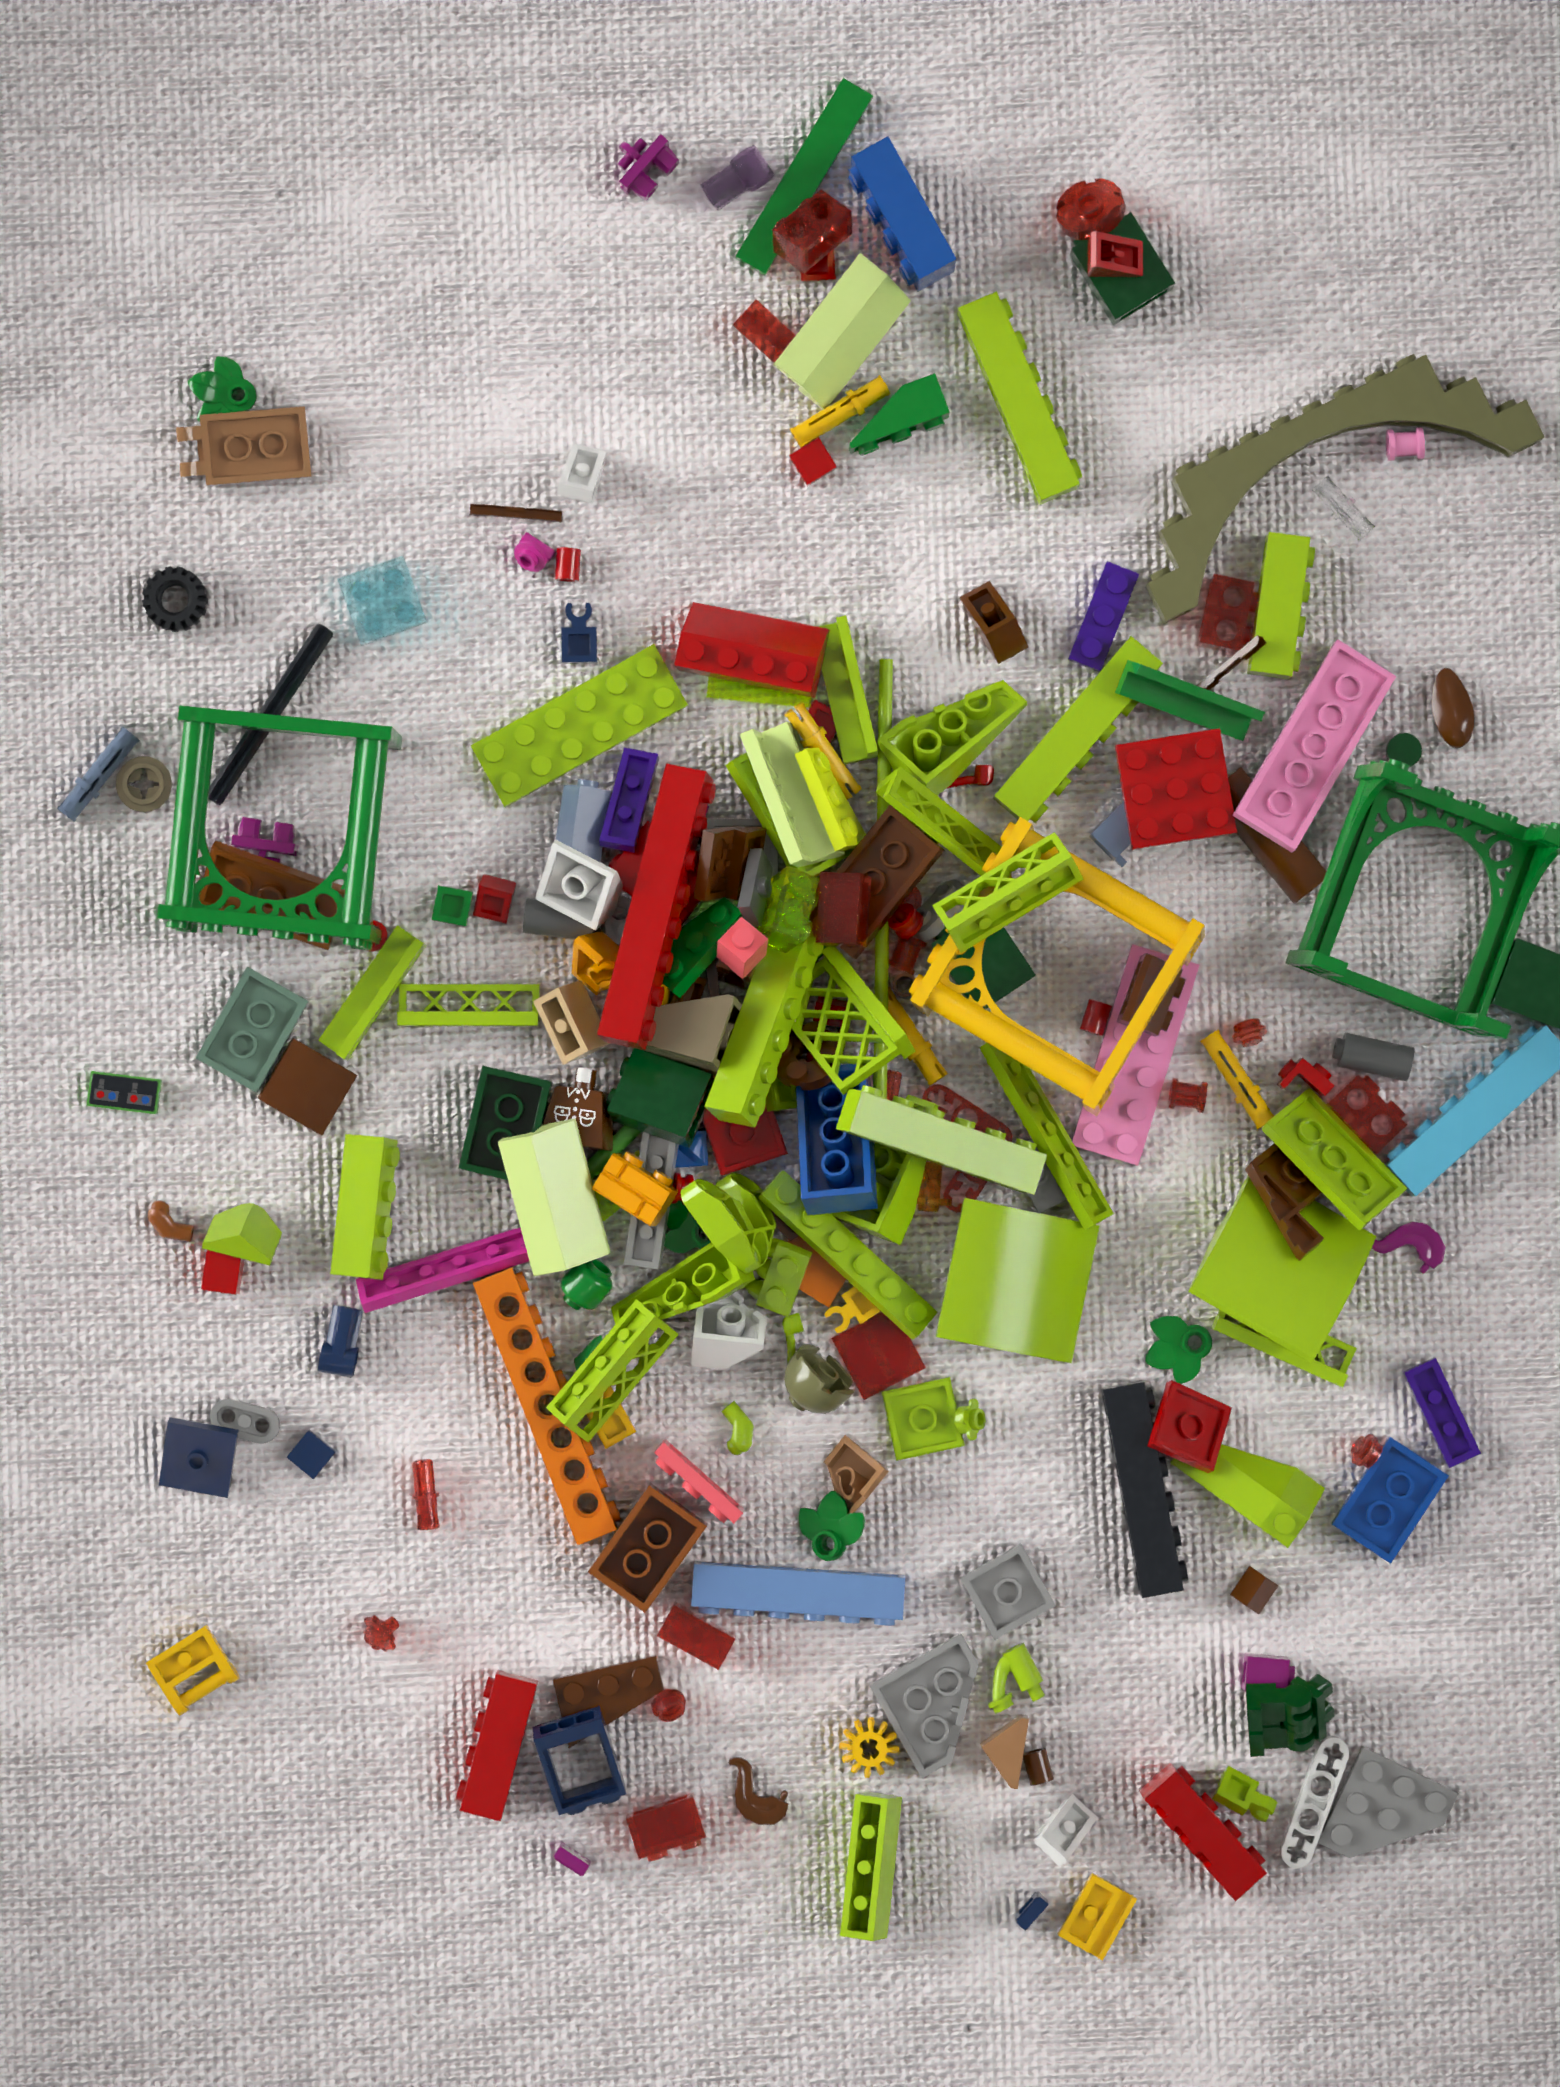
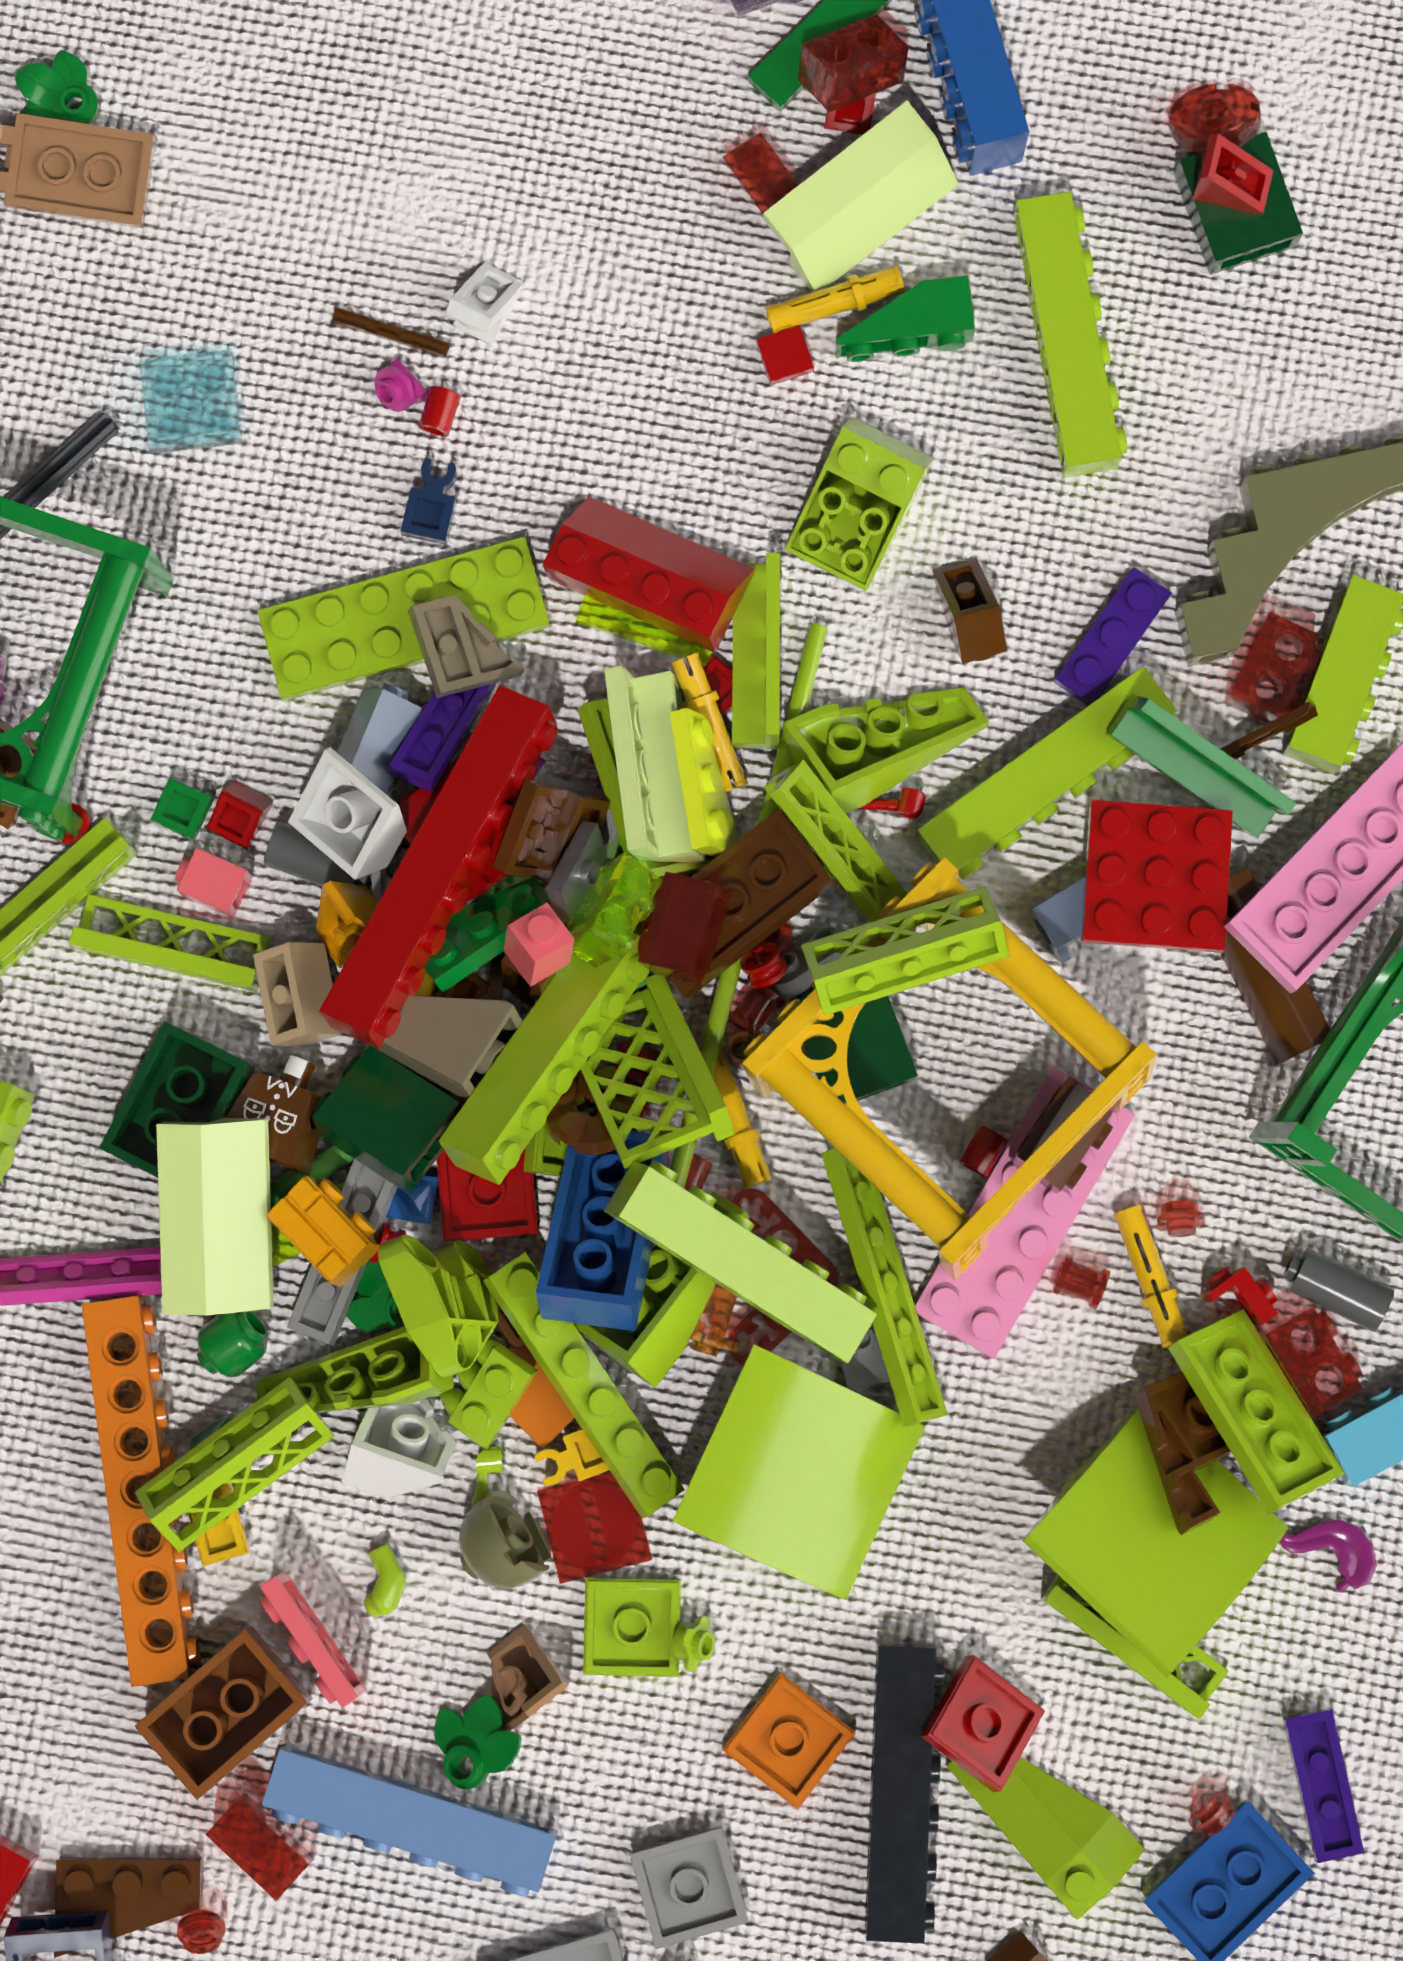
camera: 15 degrees right, 5 degrees down
(488, 954) = (212, 882): none -> coral brick
(626, 740) = (458, 648): none -> dark tan wing
(894, 561) = (858, 503): none -> lime slope
(1054, 1472) = (789, 1740): none -> orange tile
(1172, 1347) = (984, 1613): green plate -> none

